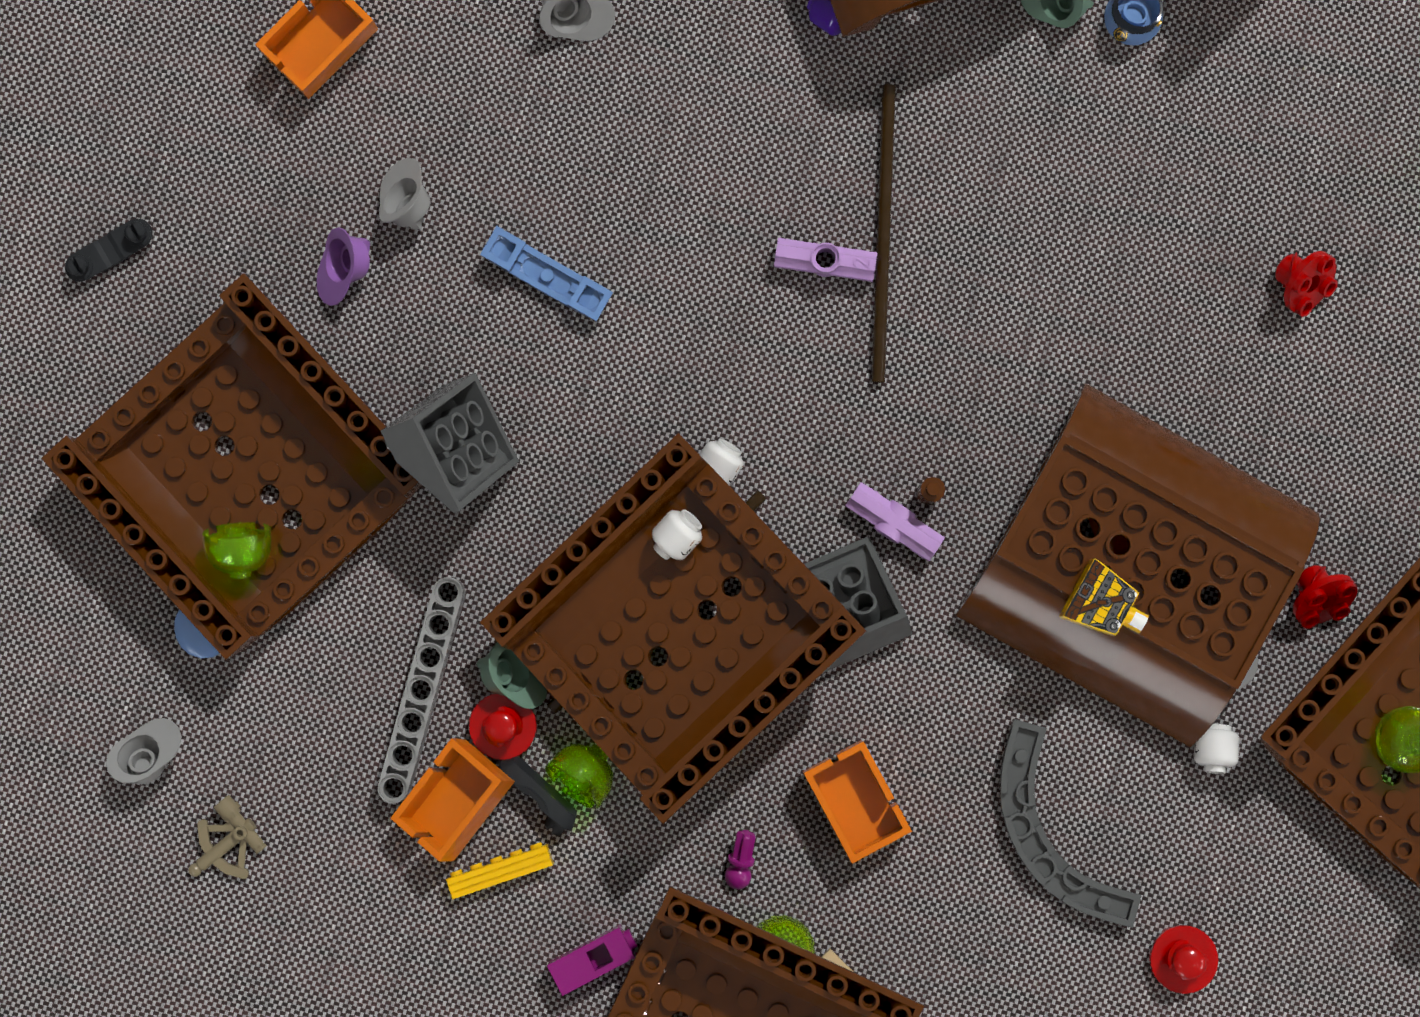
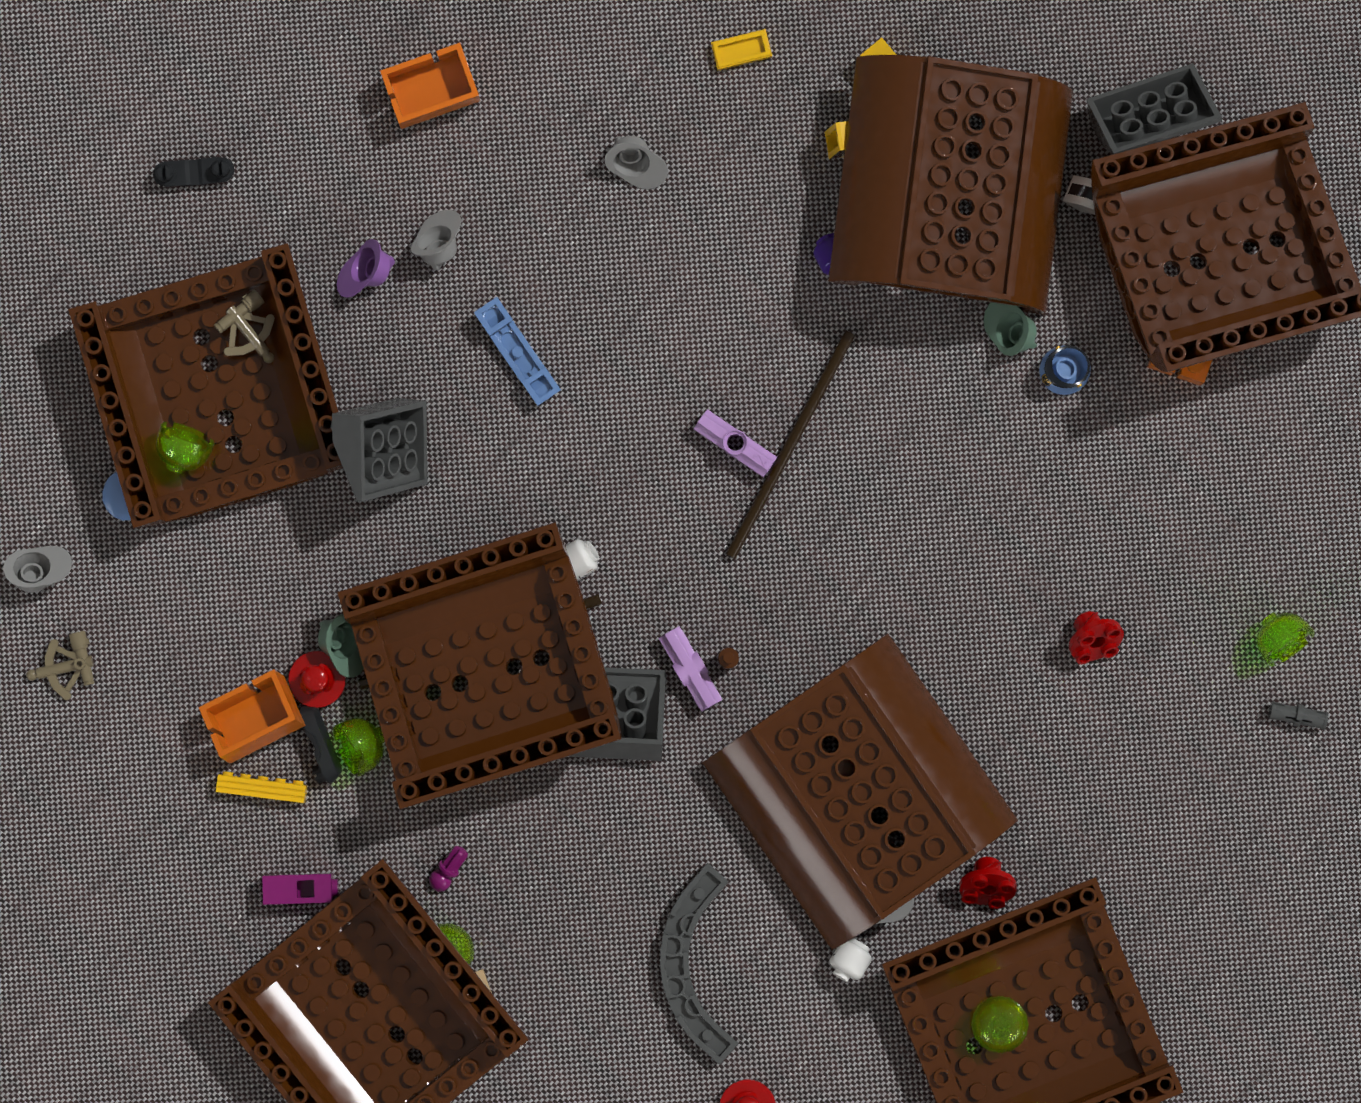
camera: 25 degrees right, 0 degrees up
(229, 381) = (237, 317): none -> dark tan piece
(410, 703) = (256, 628): light grey beam -> none
(677, 535) = (518, 598): white head -> none
(856, 801) = (556, 866): orange piece -> none
(1103, 602) = (811, 804): torso -> none

